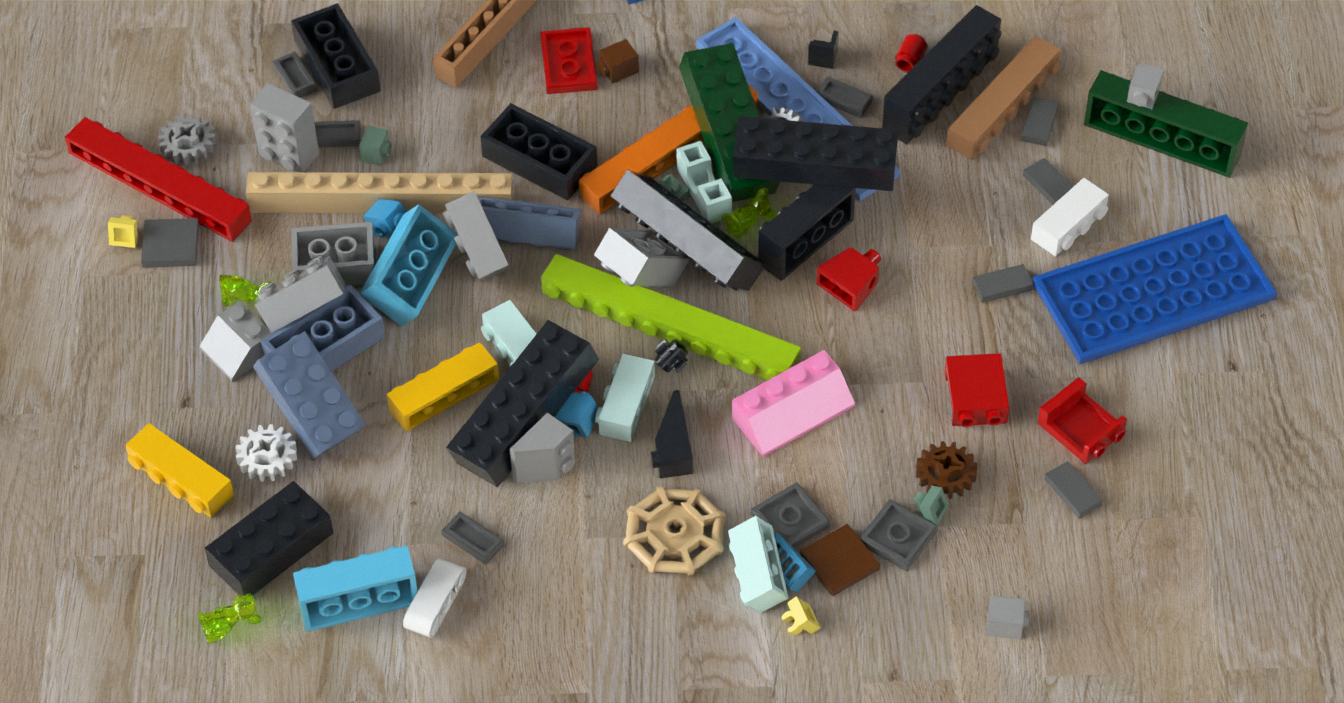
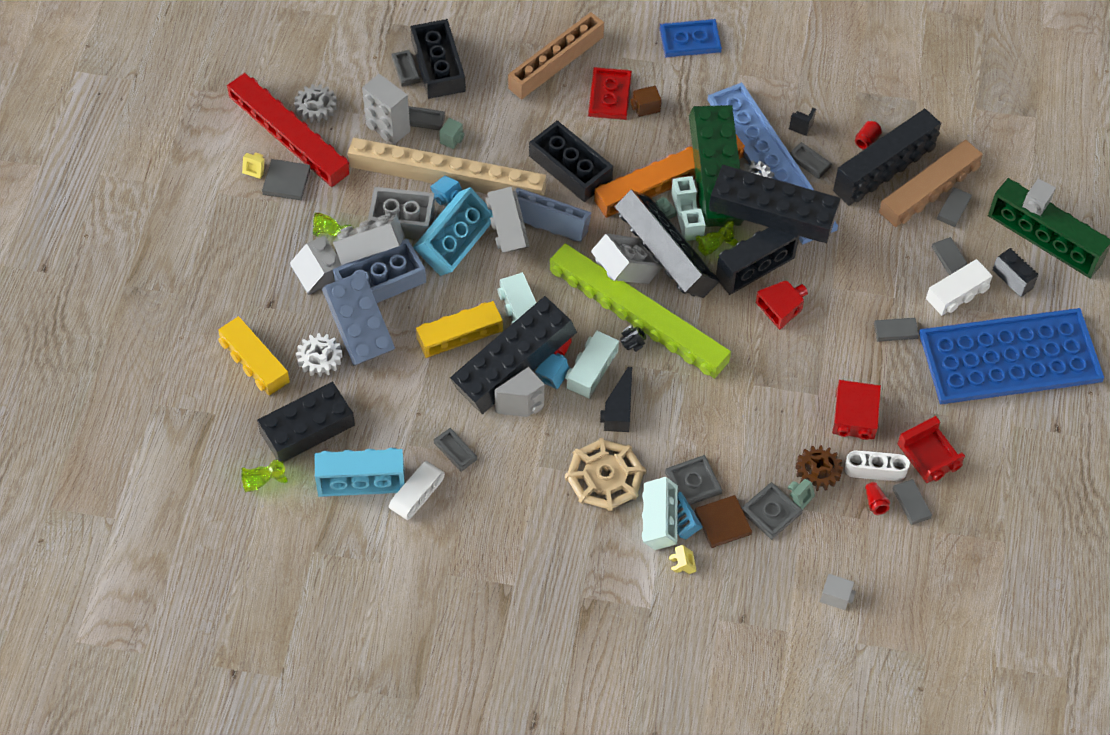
camera: 10 degrees right, 5 degrees up
(792, 403) = (715, 393): bright pink slope -> none
(1029, 495) = (877, 500): none -> red cone
(1031, 454) = (885, 460): none -> white beam
(1135, 185) = (1015, 272): none -> black brick

